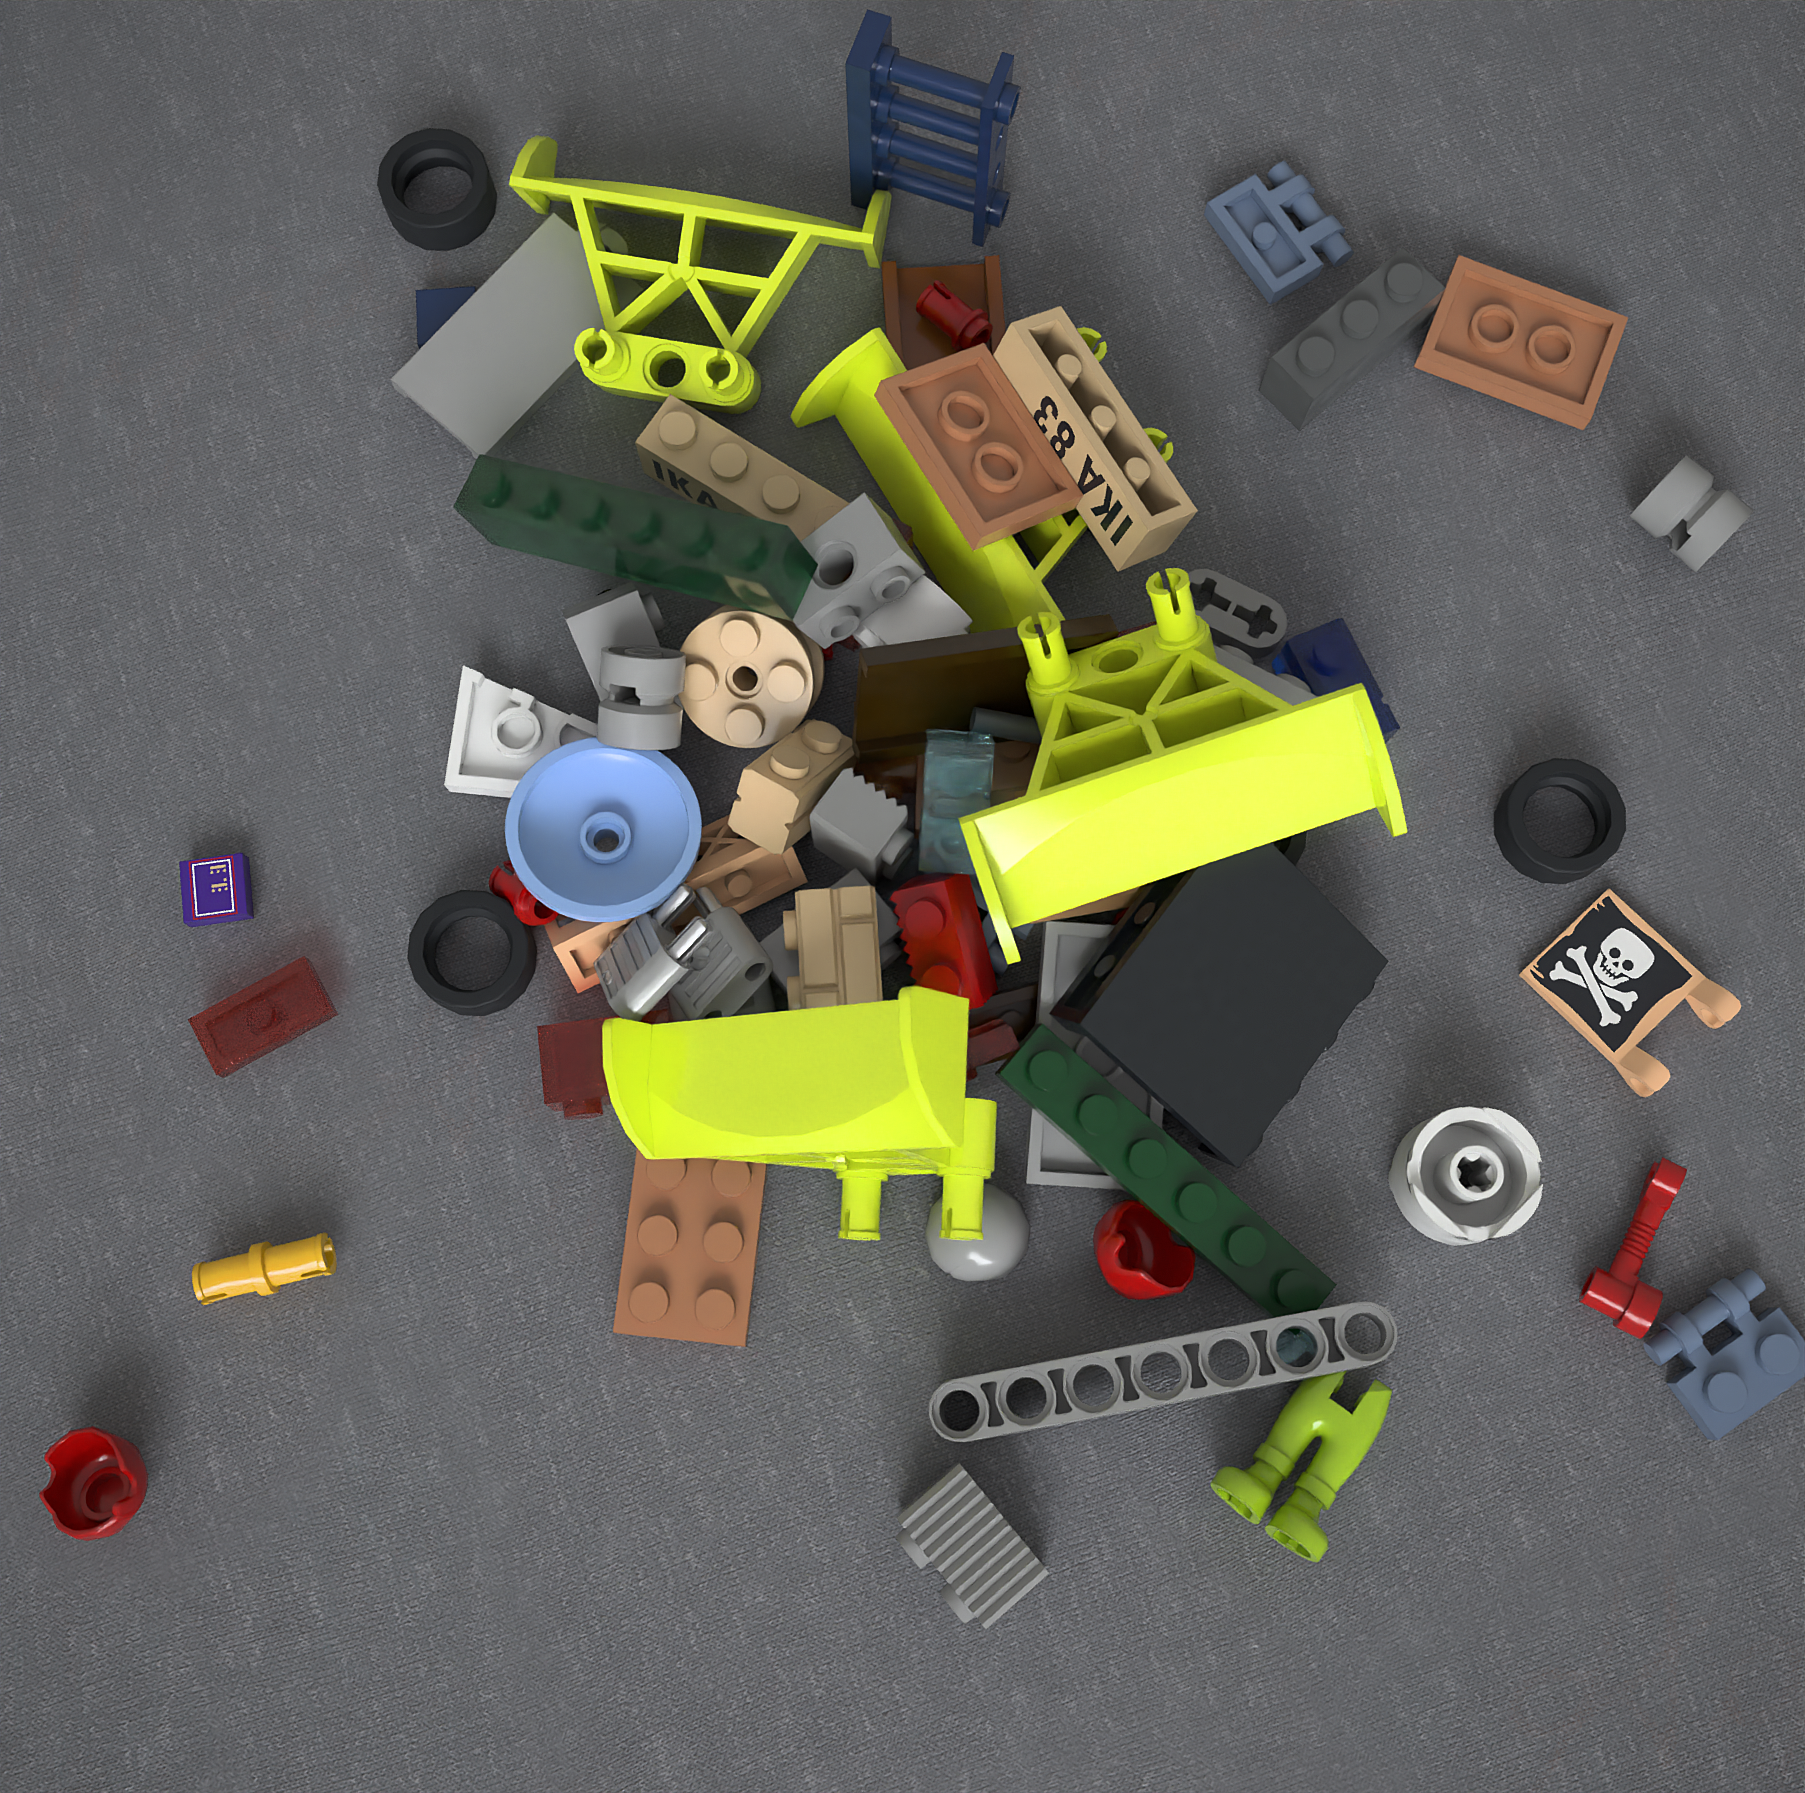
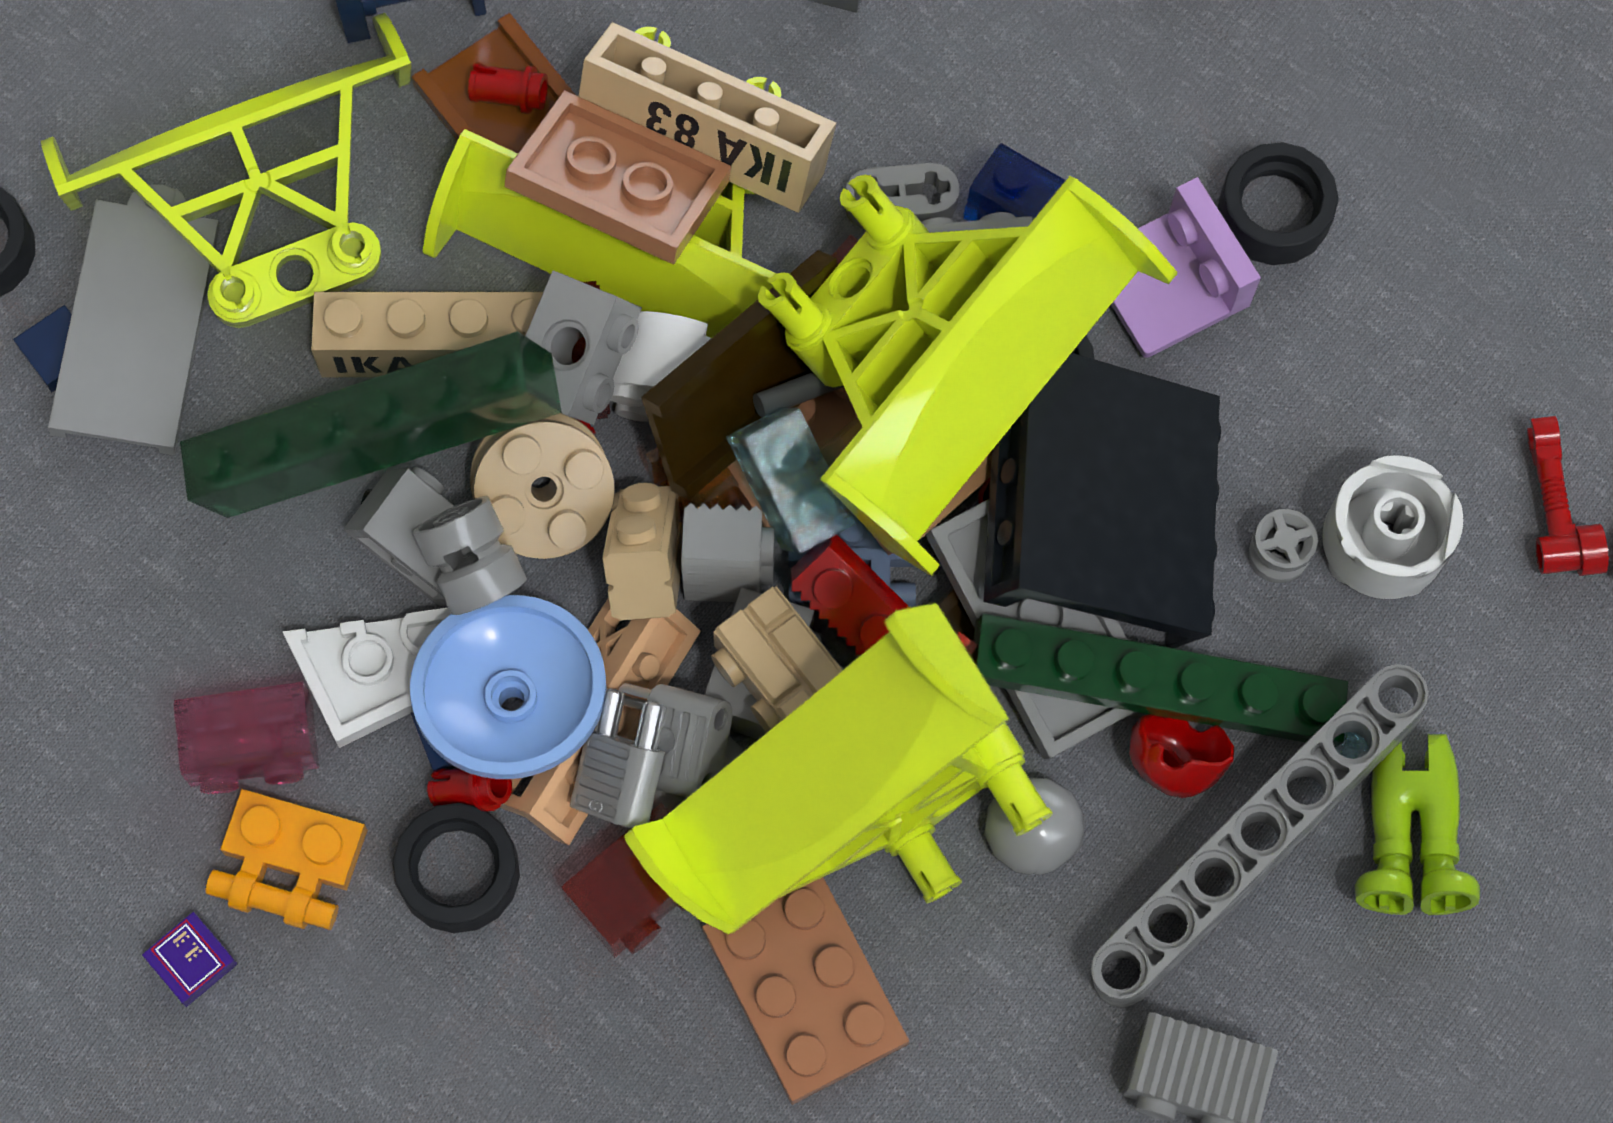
camera: 35 degrees left, 5 degrees down
(263, 1017) = (309, 1037): clear red plate -> none
(360, 844) = (292, 841): none -> light orange plate
(378, 734) = (246, 737): none -> clear pink brick
(1369, 1121) = (1288, 533): none -> light grey wheel
(1447, 835) = (1211, 280): none -> lavender bracket
(1618, 982) = (1407, 305): flag -> none

